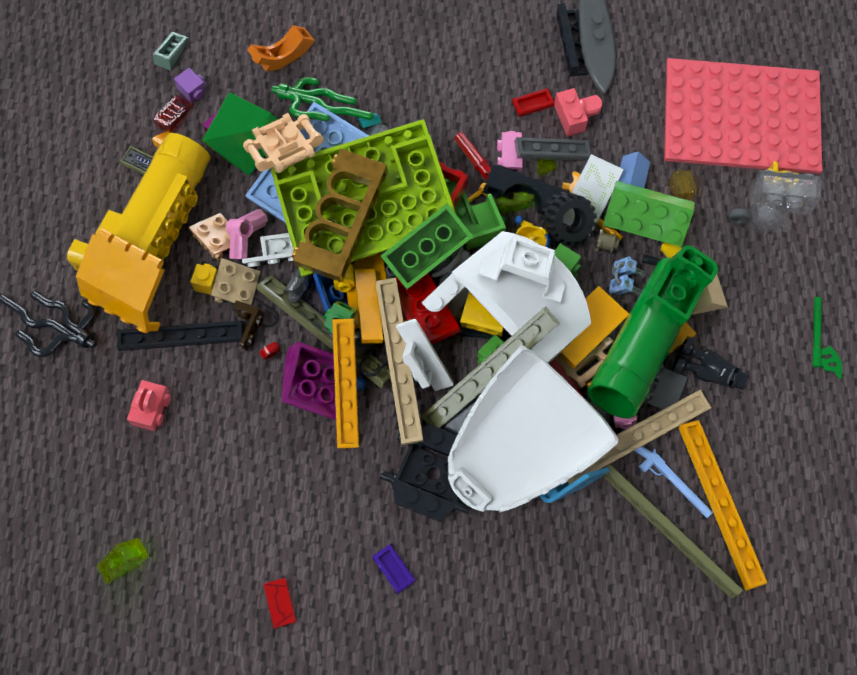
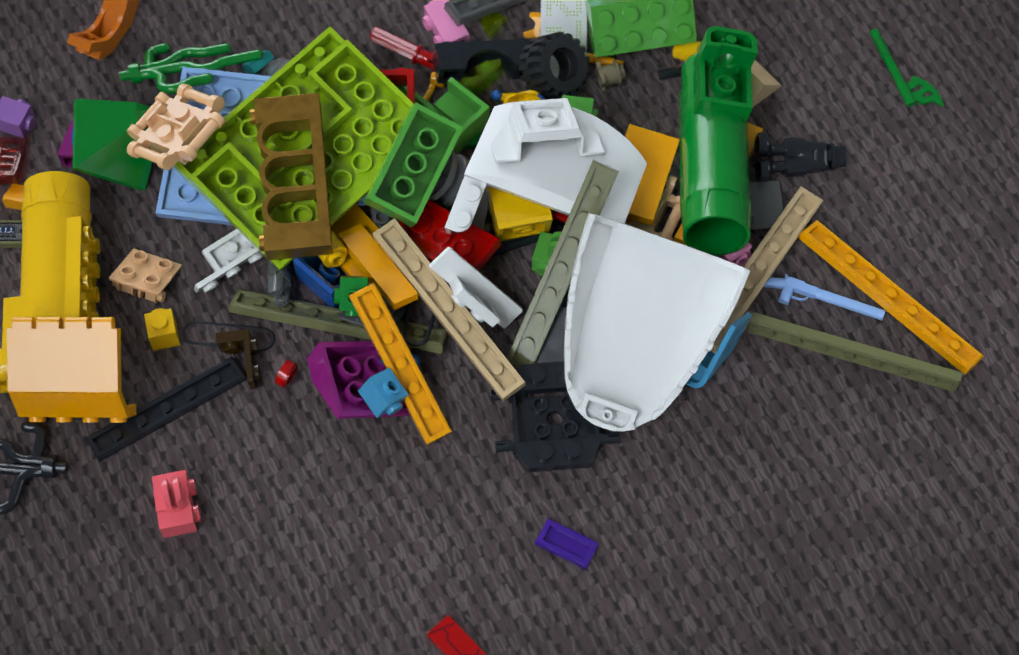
camera: 25 degrees left, 5 degrees down
(235, 282) = (199, 317): tan hinge -> none
(241, 229) = (175, 253): bright pink piece -> none
(323, 399) = (383, 393): none -> dark azure brick
(624, 284) = (652, 111): light blue piece -> none

